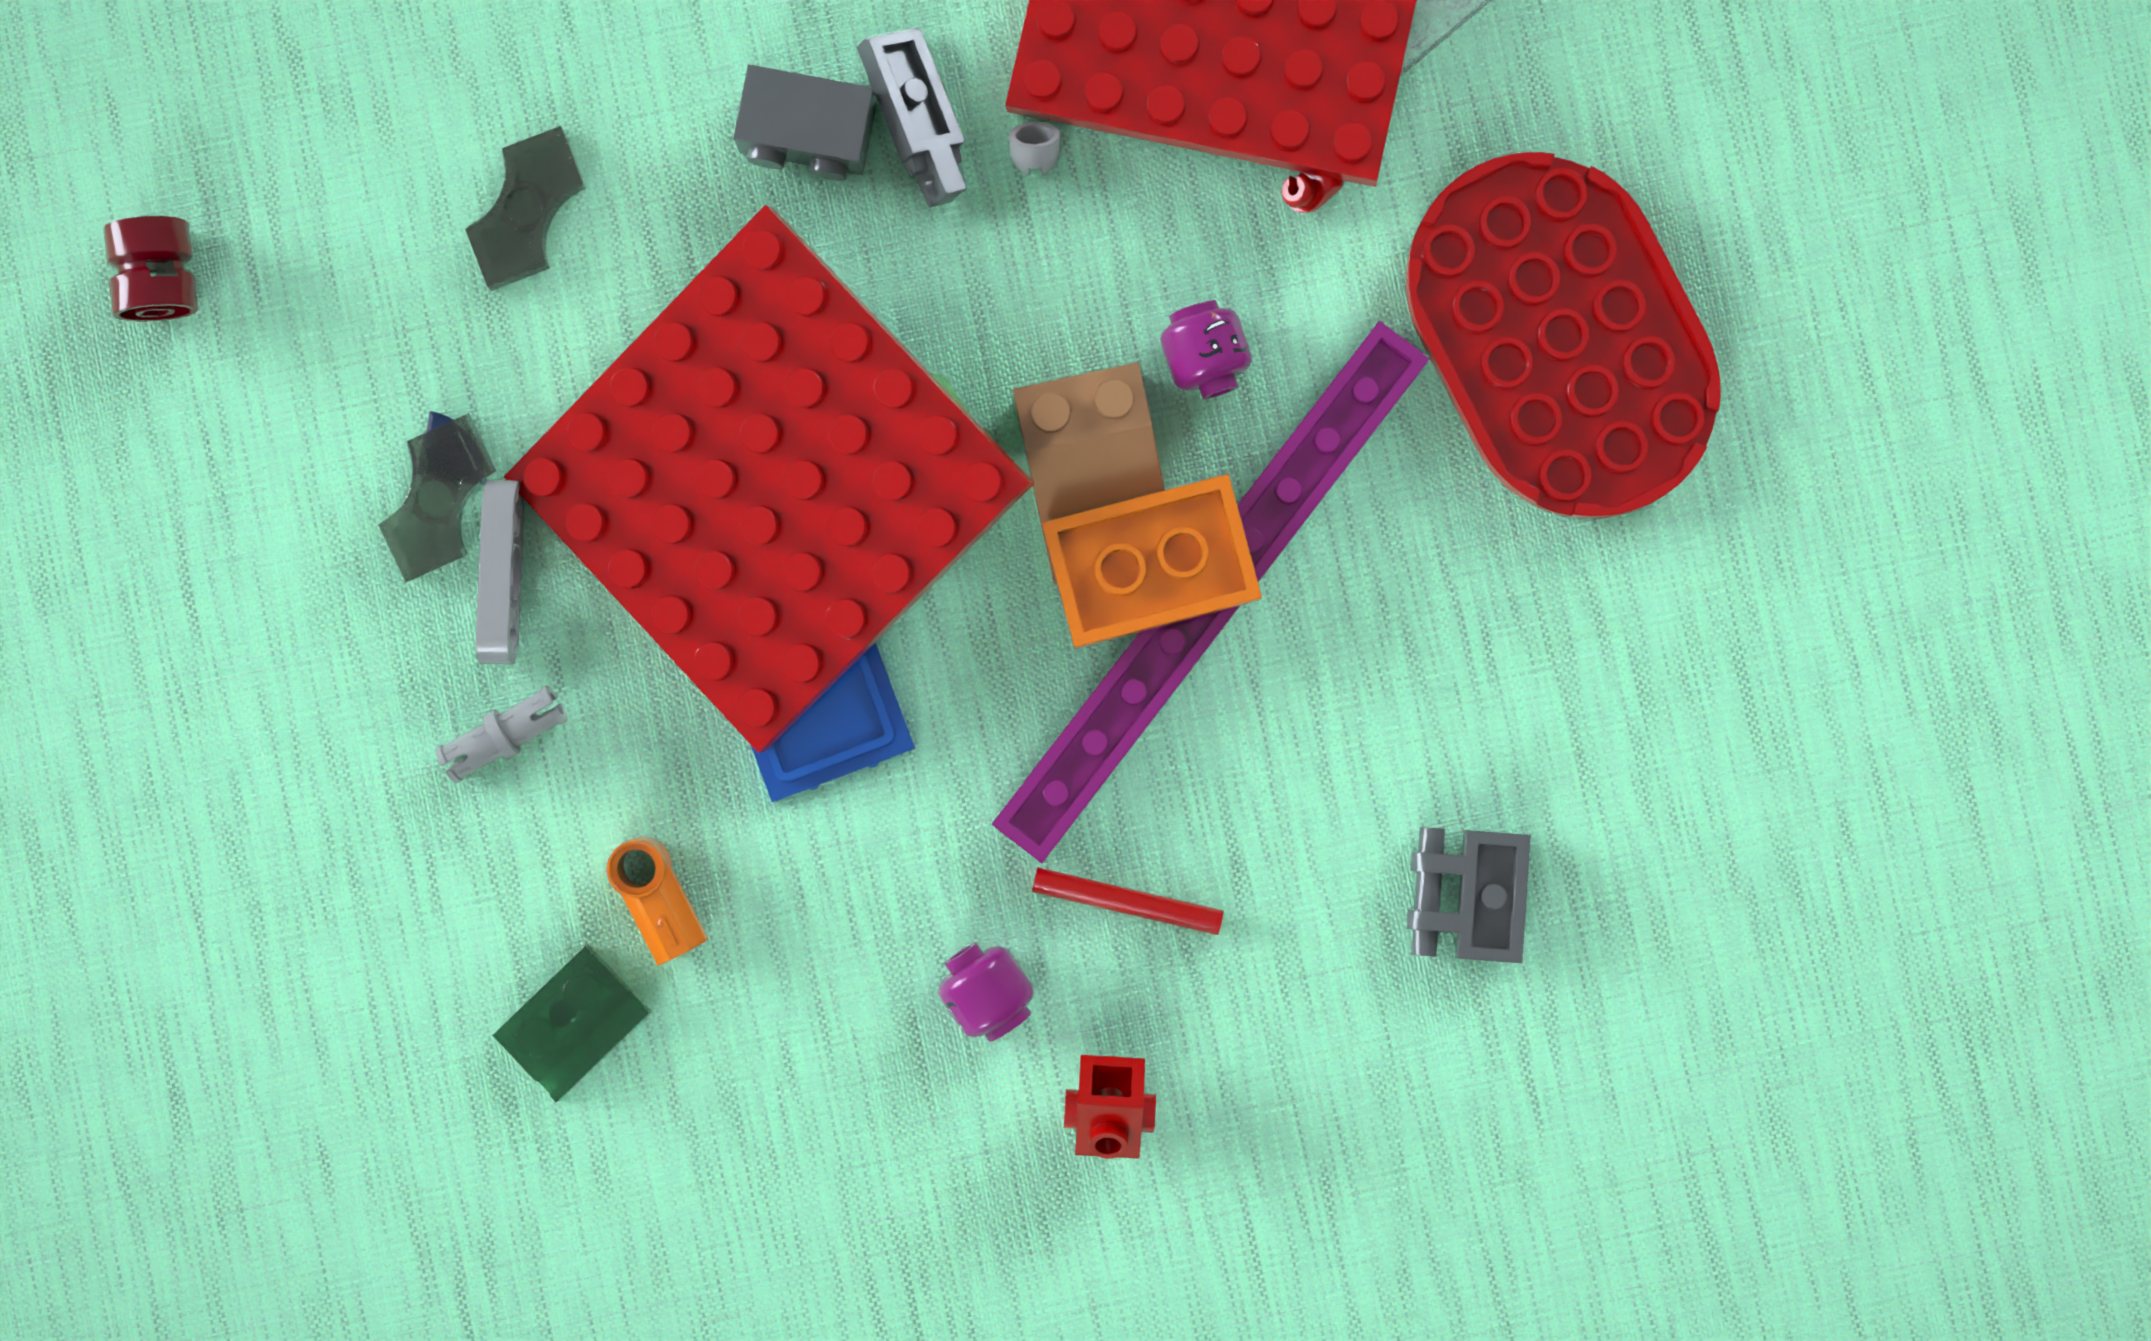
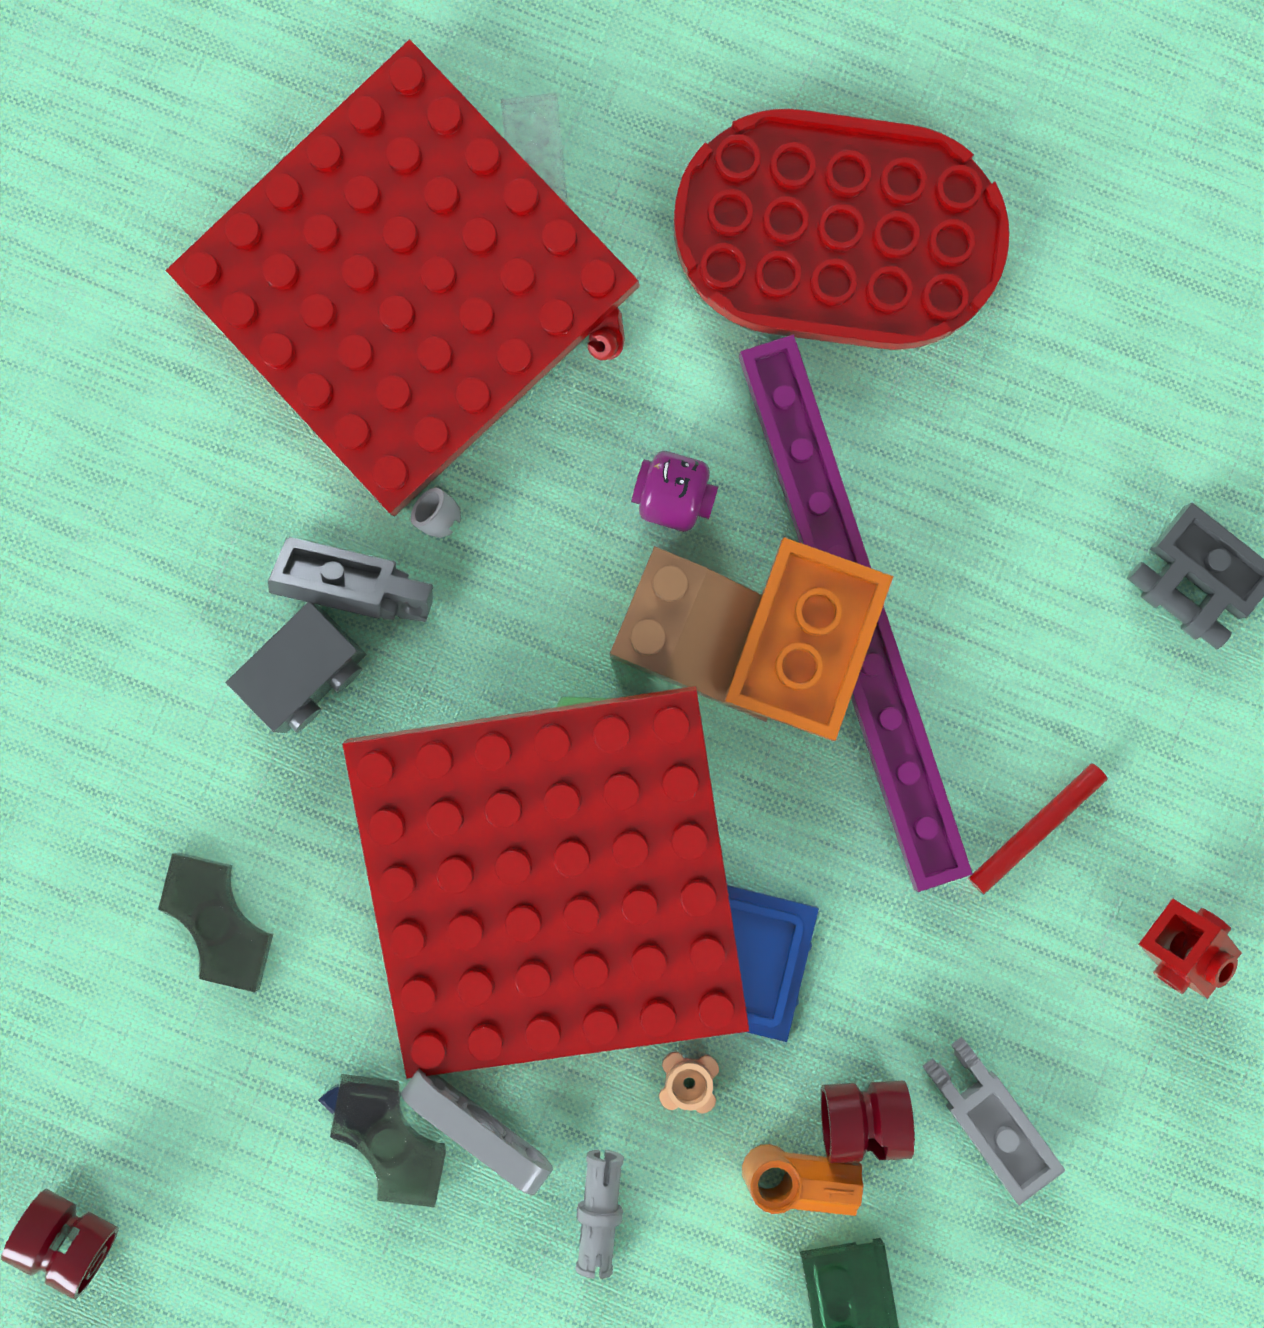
camera: 60 degrees left, 0 degrees up
(656, 731) = (700, 1095): none -> light nougat plate
(749, 916) = (867, 1121): none -> dark red wheel
(826, 1044) = (997, 1127): none -> light grey hinge
(986, 991) = (1039, 981): magenta head -> none

